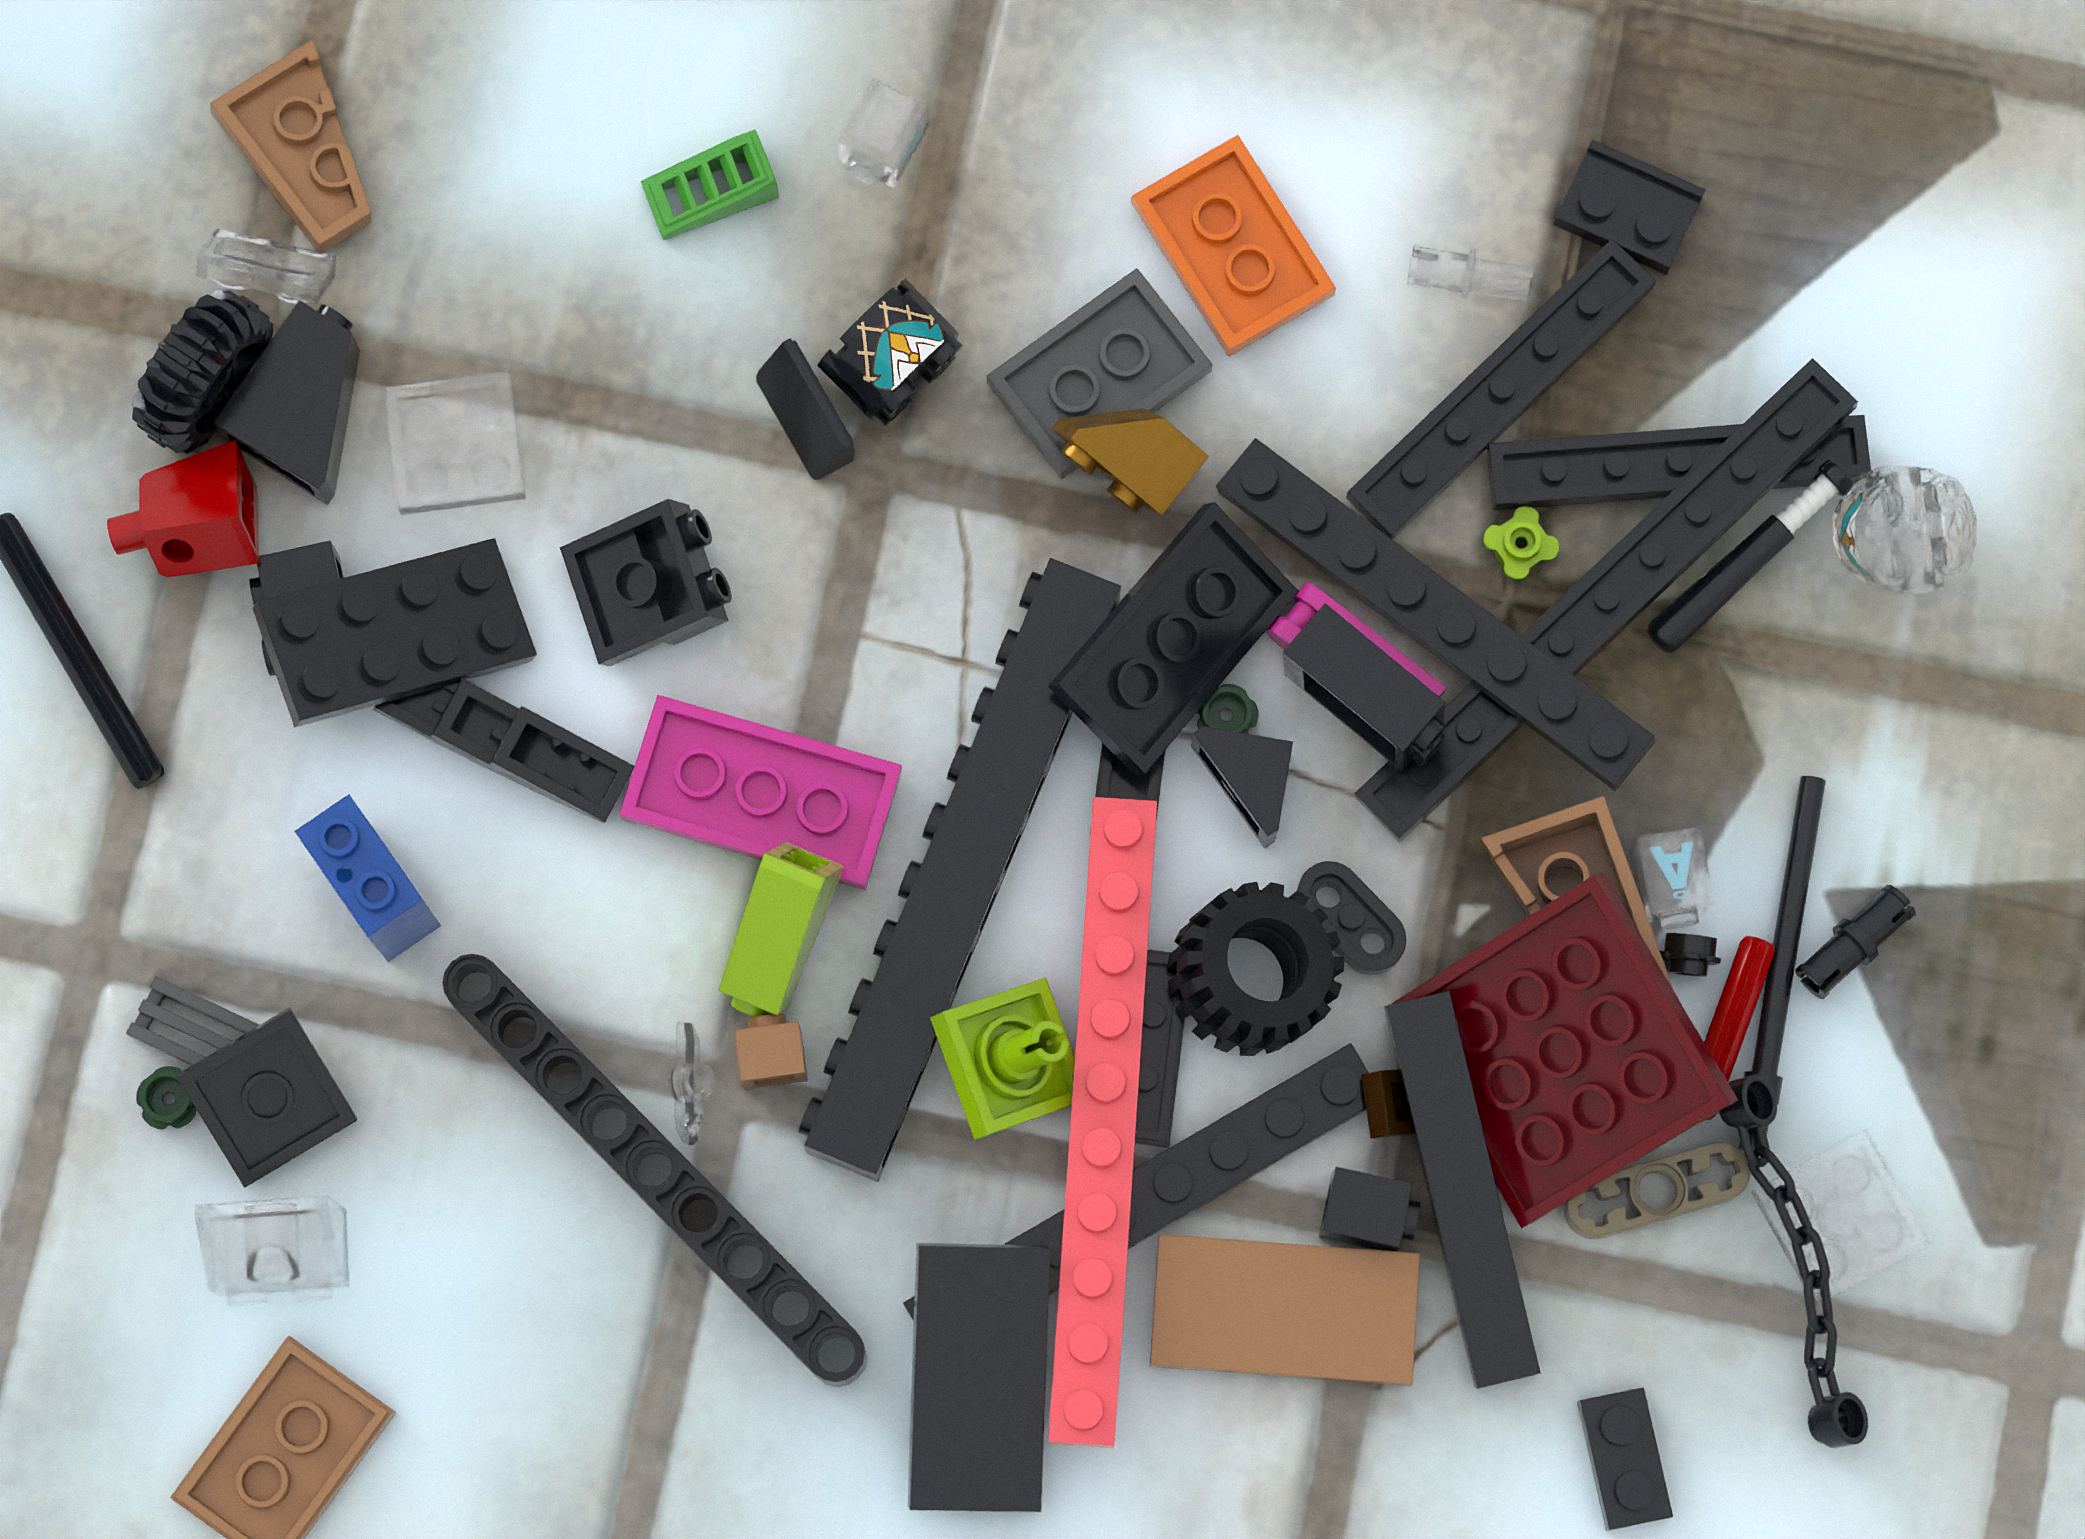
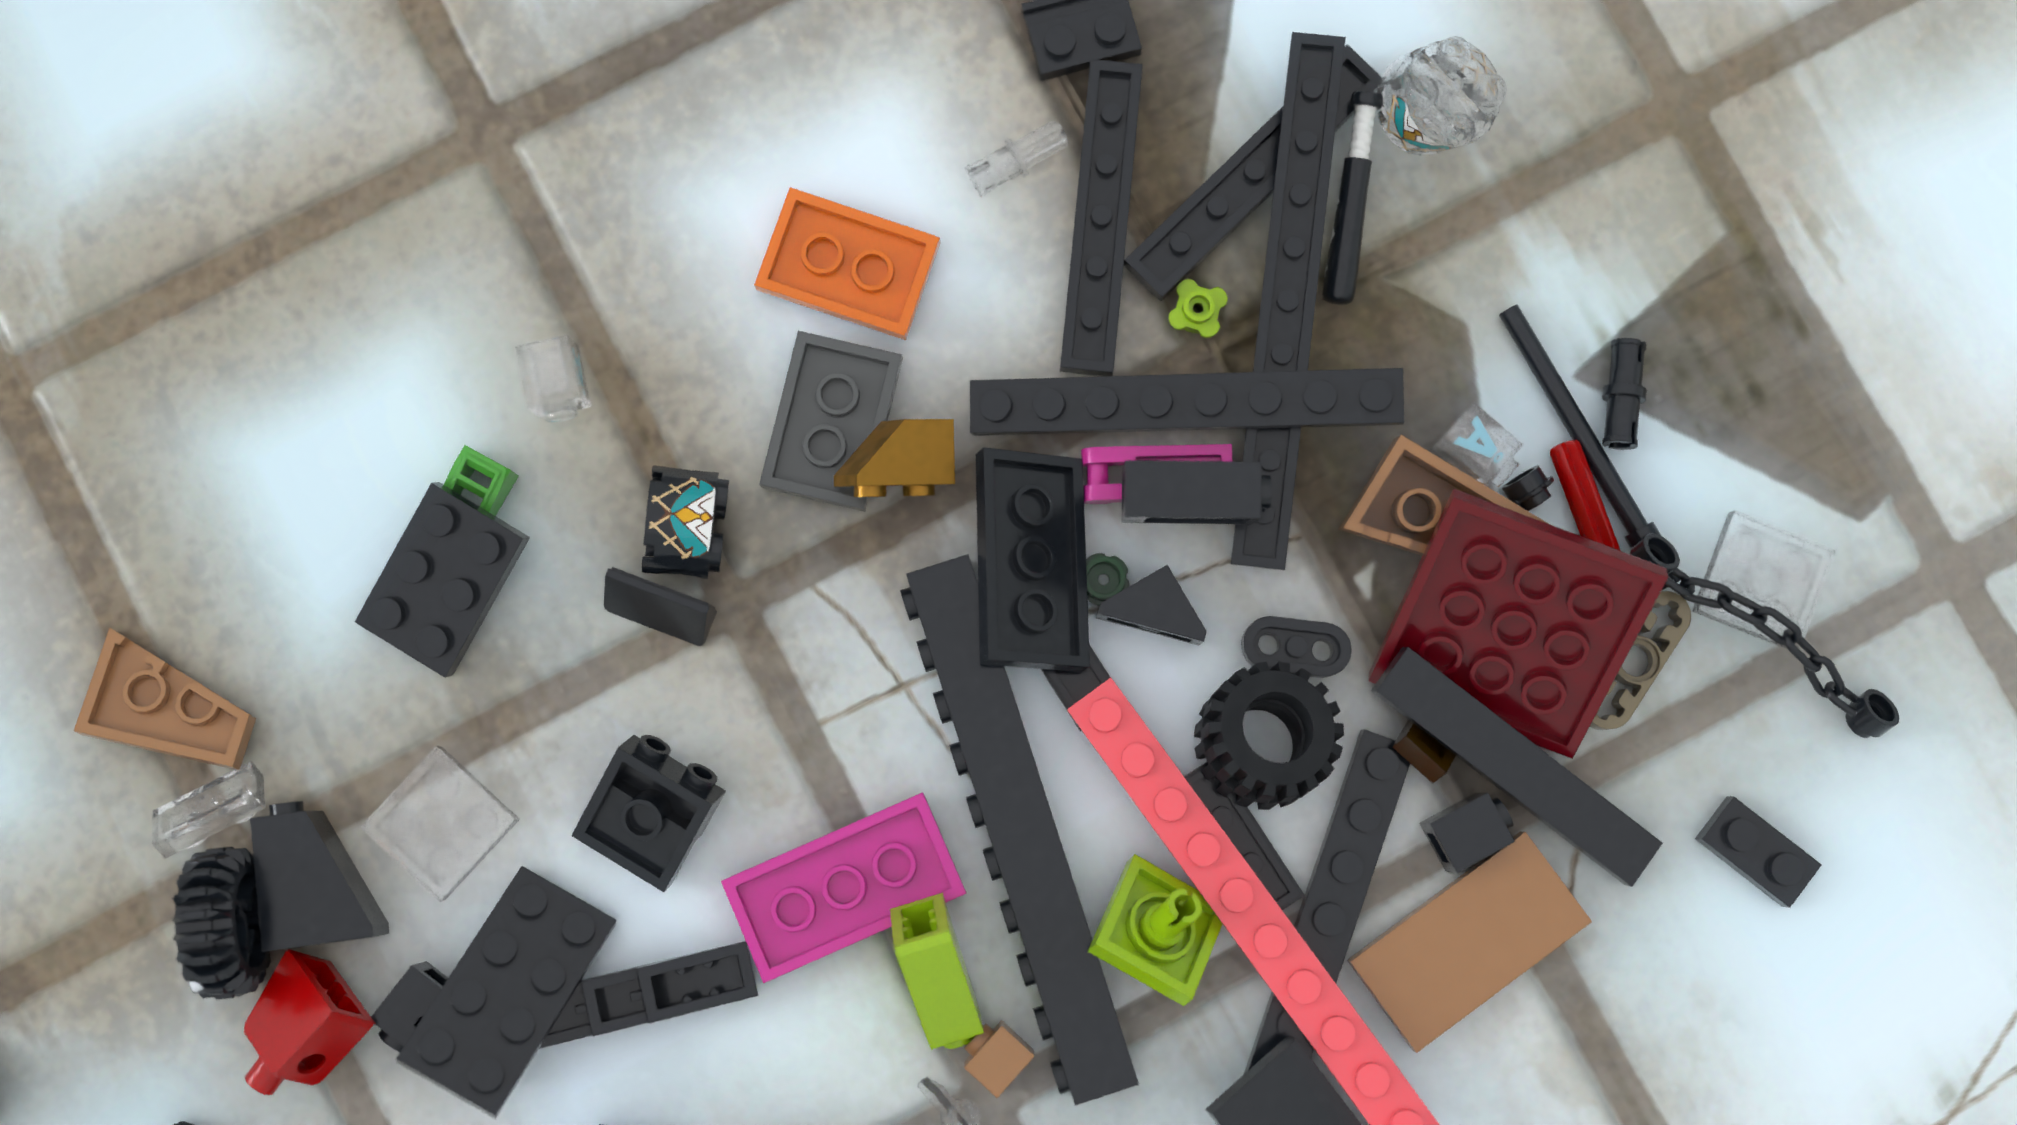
camera: 40 degrees left, 5 degrees up
(635, 231) = (442, 579): none -> black plate

